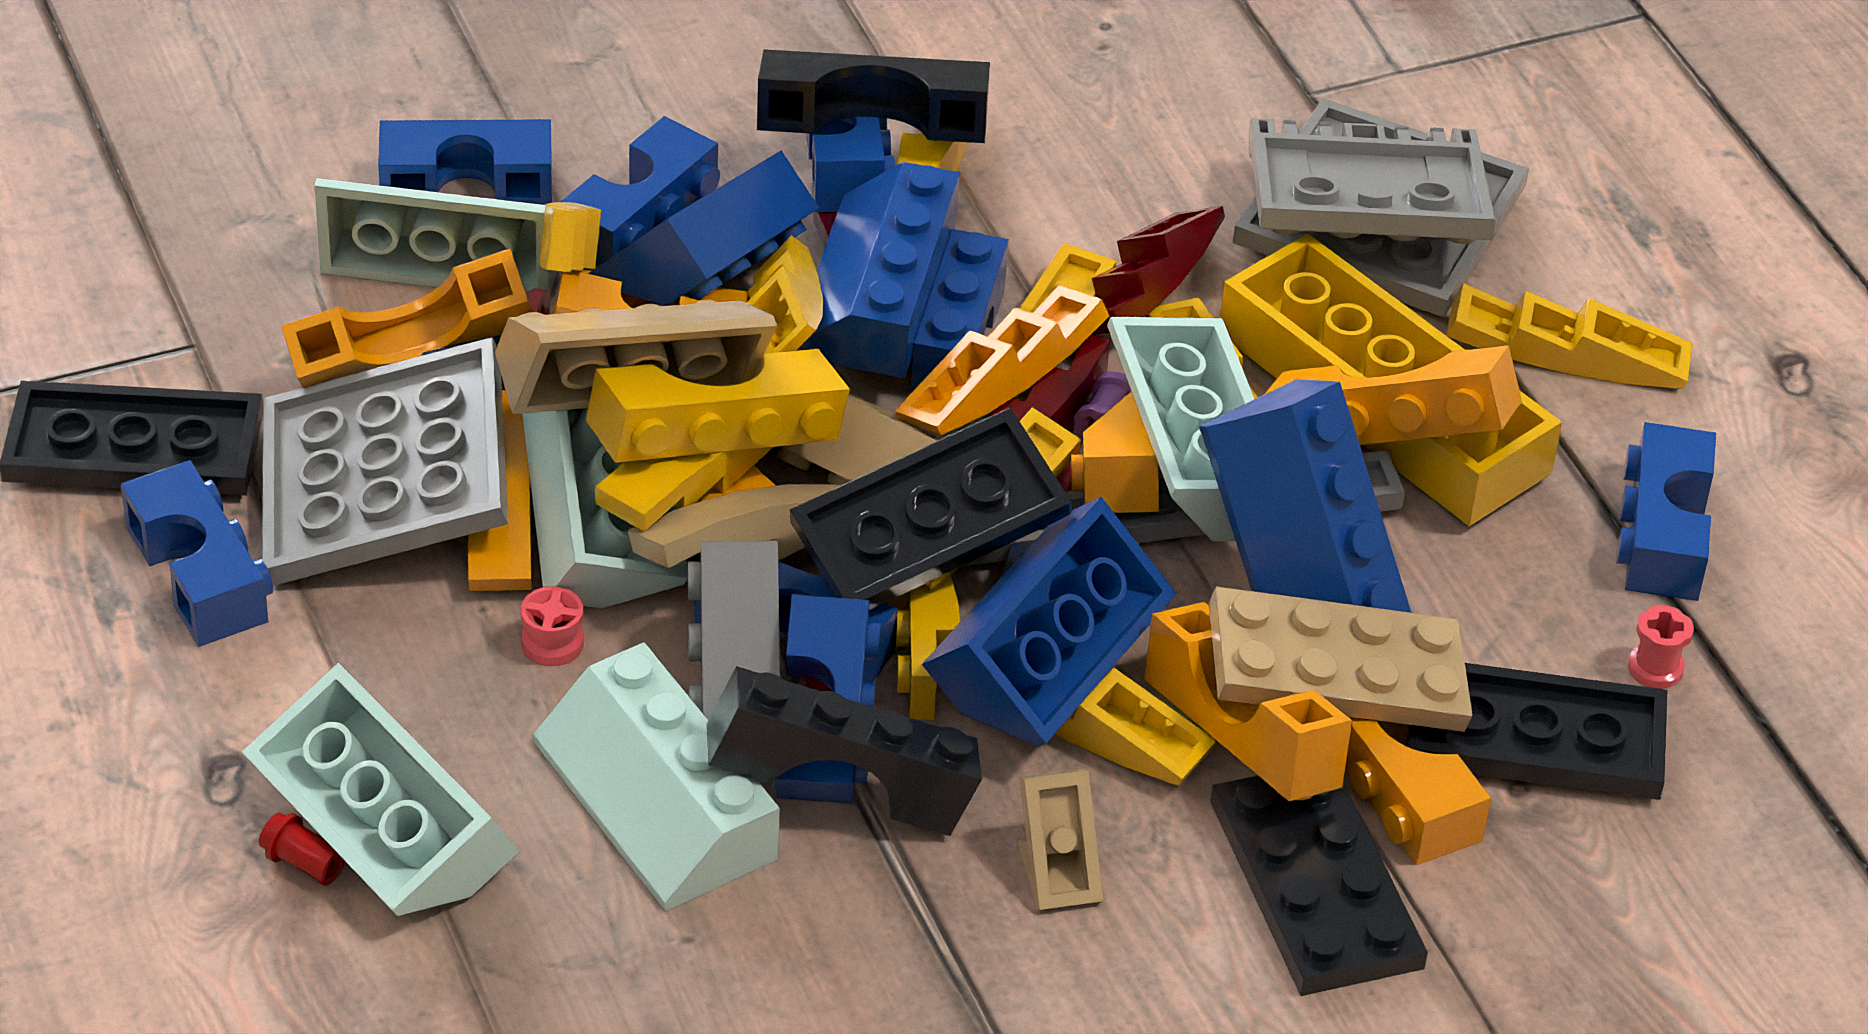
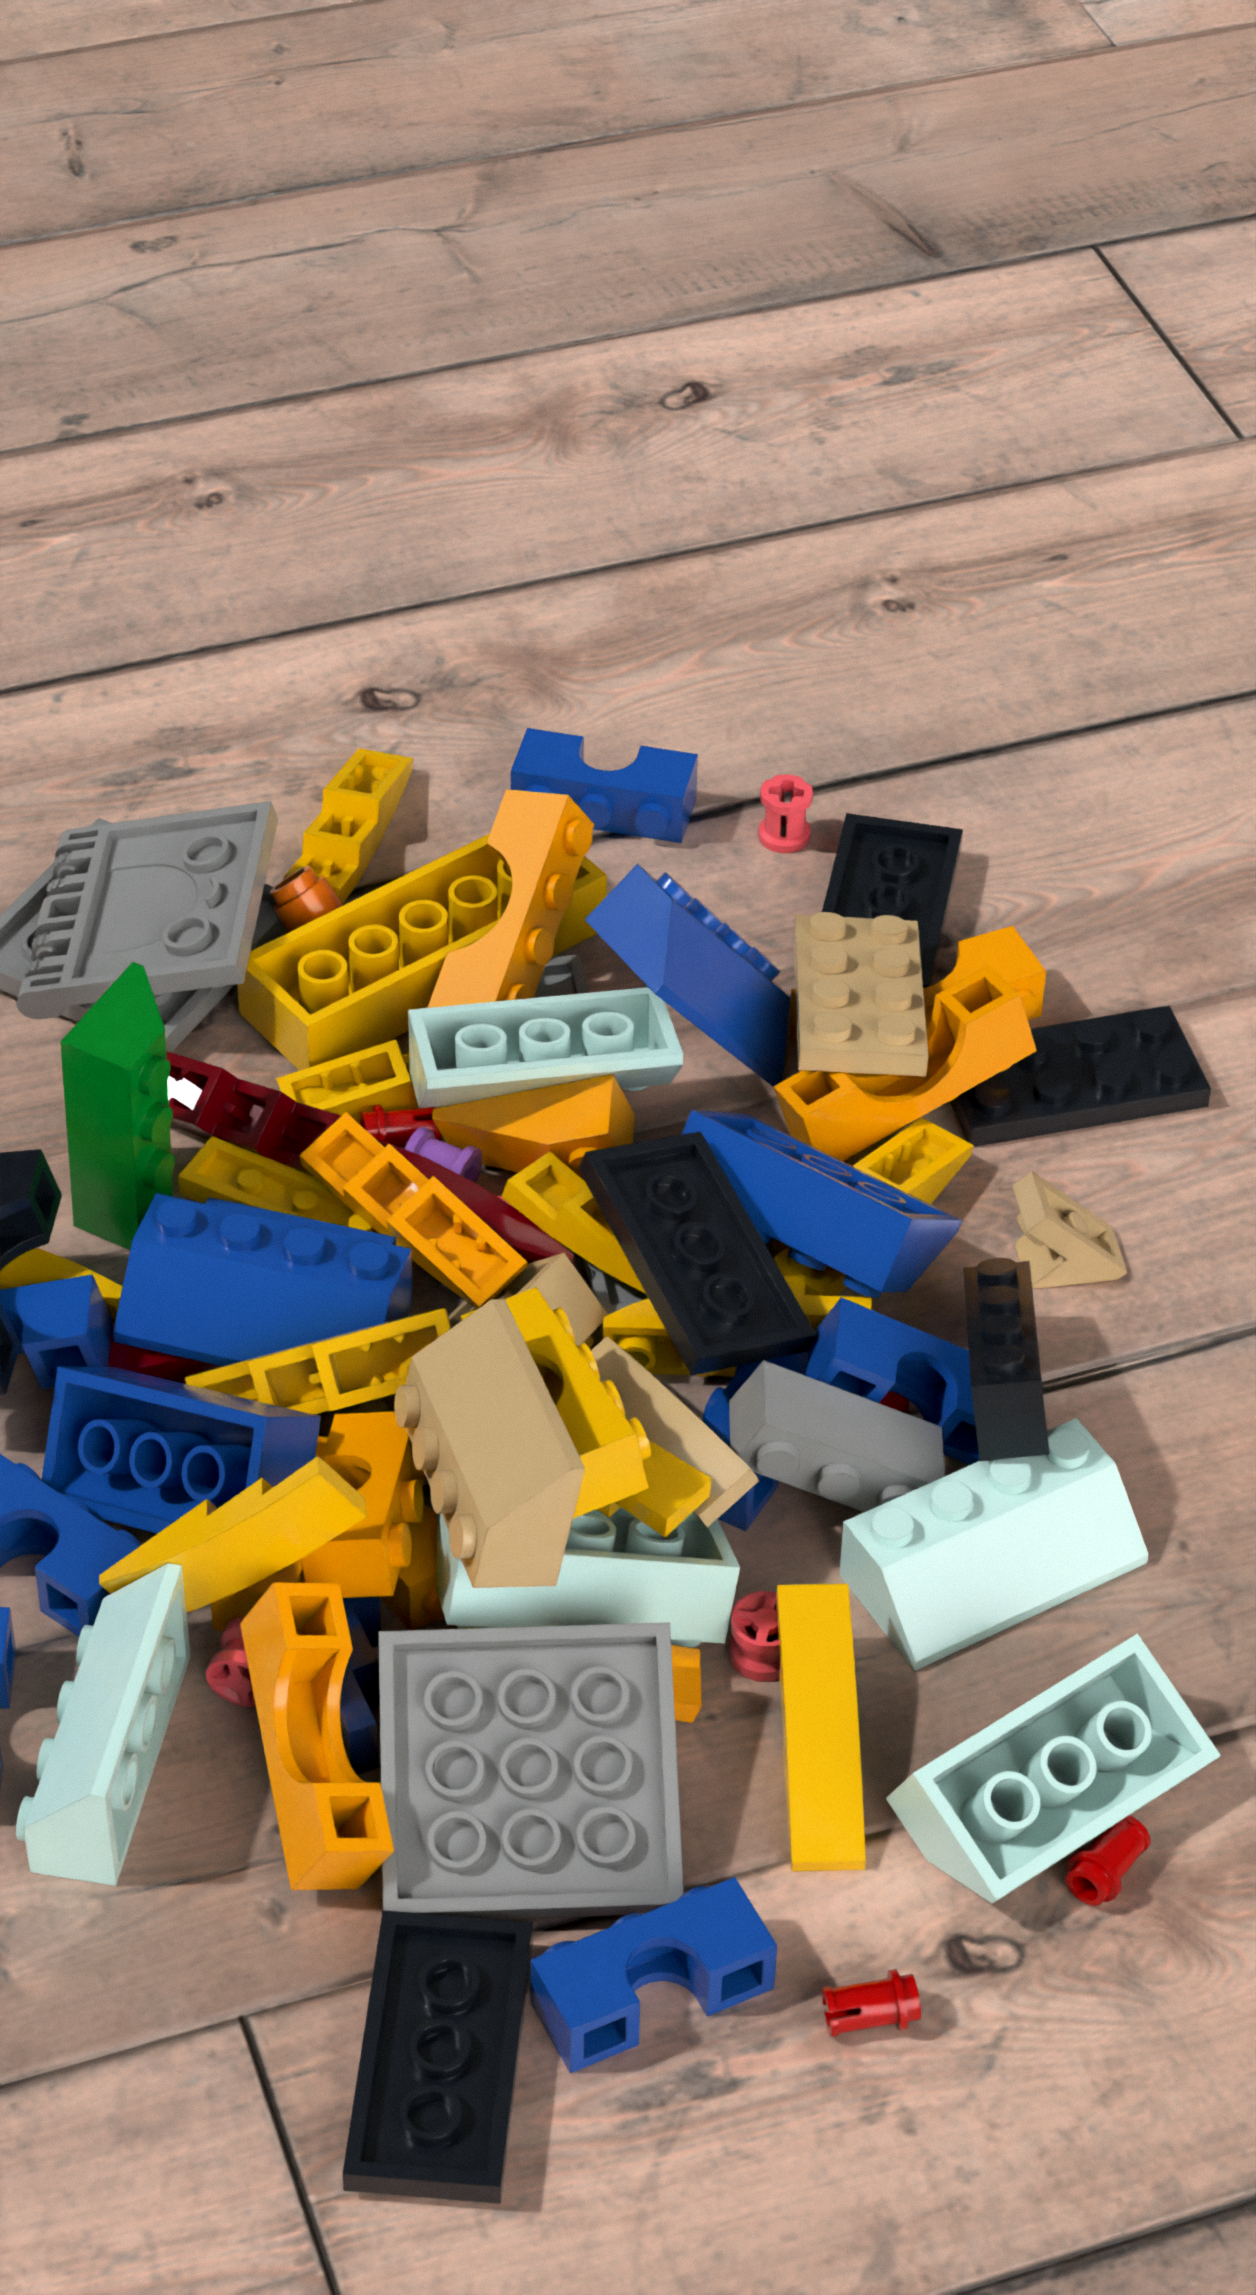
camera: 85 degrees left, 0 degrees up
(162, 699) = (872, 2004): none -> red pin
(456, 646) = (820, 1728): none -> yellow slope
(1066, 150) = (118, 1109): none -> green slope
(1424, 291) = (303, 898): none -> orange brick

